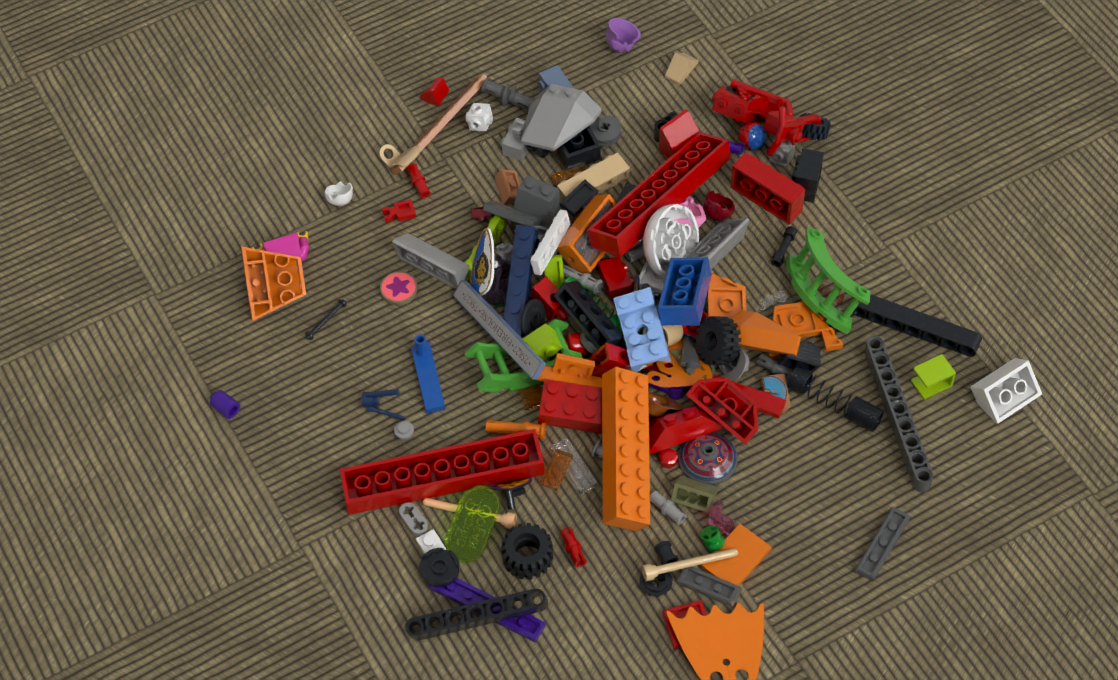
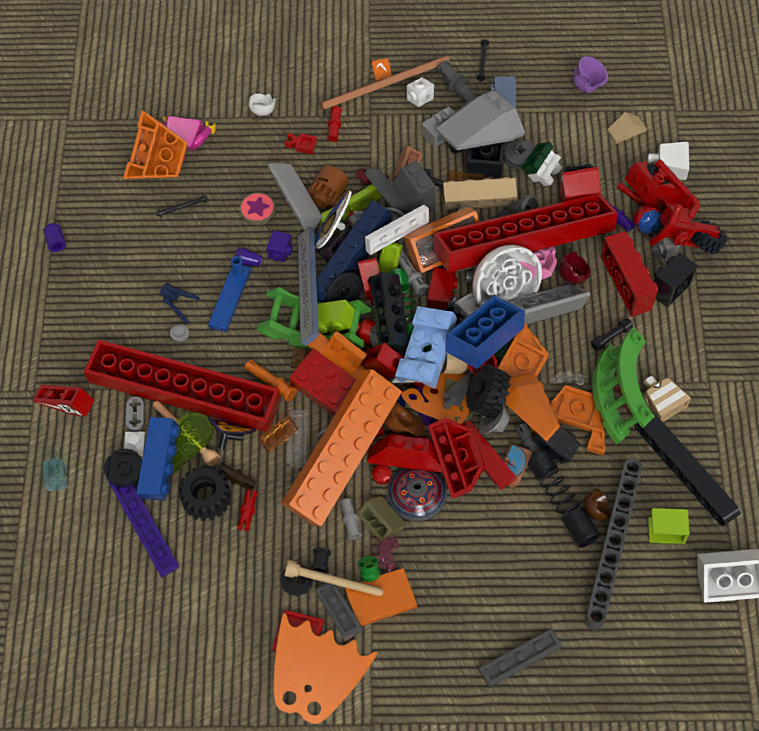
camera: 30 degrees right, 5 degrees up
(338, 539) = (65, 399): none -> red slope
(380, 614) = (57, 481): none -> clear light blue brick
(399, 159) = (332, 97): tan piece -> none
(427, 113) = (381, 69): none -> orange slope
(428, 332) = (248, 257): none -> dark purple cone
(436, 92) = (399, 54): red tile -> none
(444, 311) = (279, 246): none -> dark purple brick
(454, 236) = (328, 186): none -> dark orange gear
(466, 543) = (158, 458): none -> blue brick
(466, 612) = (132, 529): black beam -> none
(523, 80) = (481, 77): none -> black axle
(547, 524) = (237, 477): none -> dark brown pin
(579, 197) = (454, 202): black tile -> none
(632, 129) = (542, 163): none -> hips
(638, 173) = (524, 204): none -> dark grey hat
(723, 121) = (623, 188): none -> red bar
(740, 70) = (674, 156): none -> white torso
(863, 389) = (595, 505): none -> reddish brown hair
(864, 273) = (665, 398): none -> tan torso

